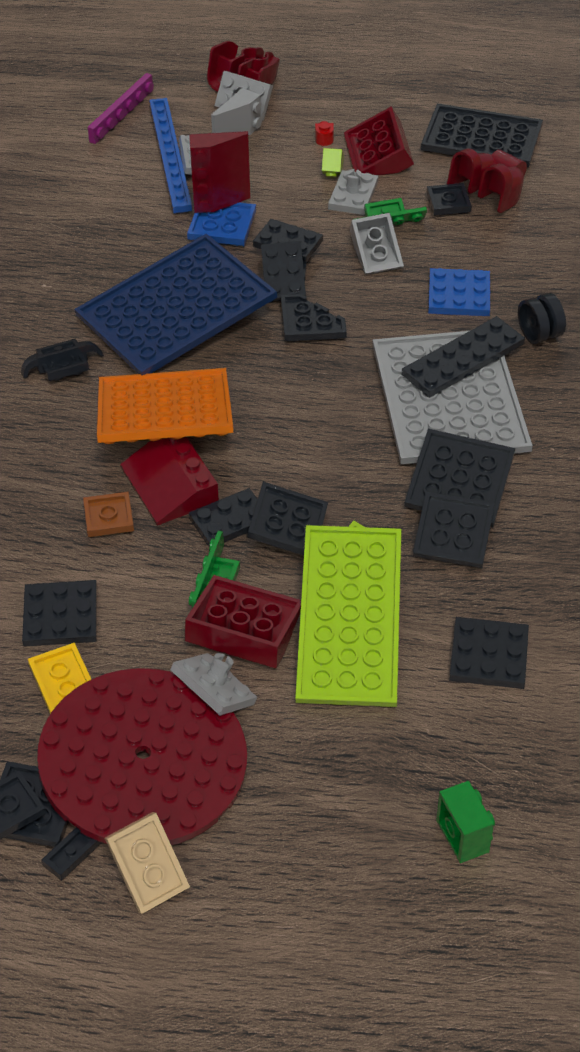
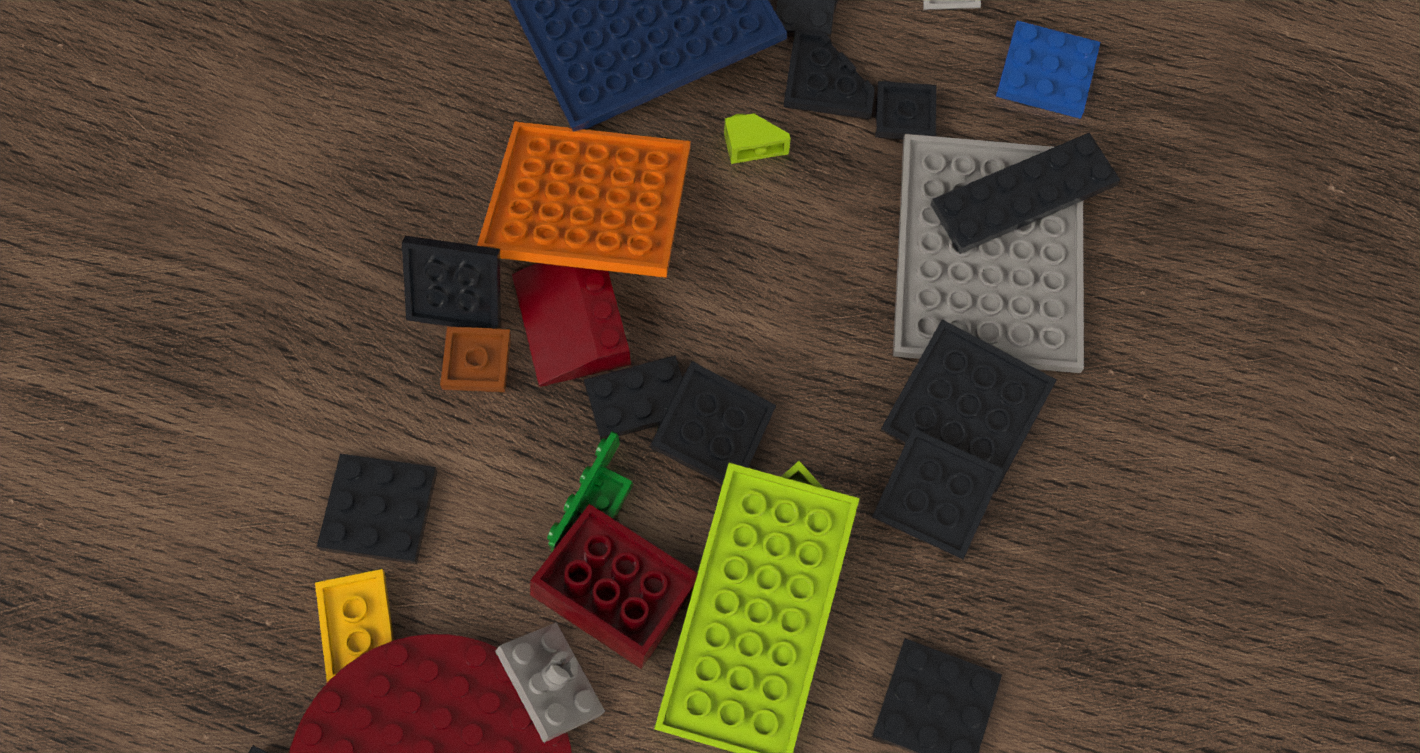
camera: 10 degrees right, 20 degrees up
(61, 359) = (472, 79): black plate -> none
(81, 465) = (451, 283): none -> black plate
(270, 359) = (754, 138): none -> lime slope
(368, 326) = (905, 109): none -> black plate
(541, 318) = (1153, 150): black wheel -> none

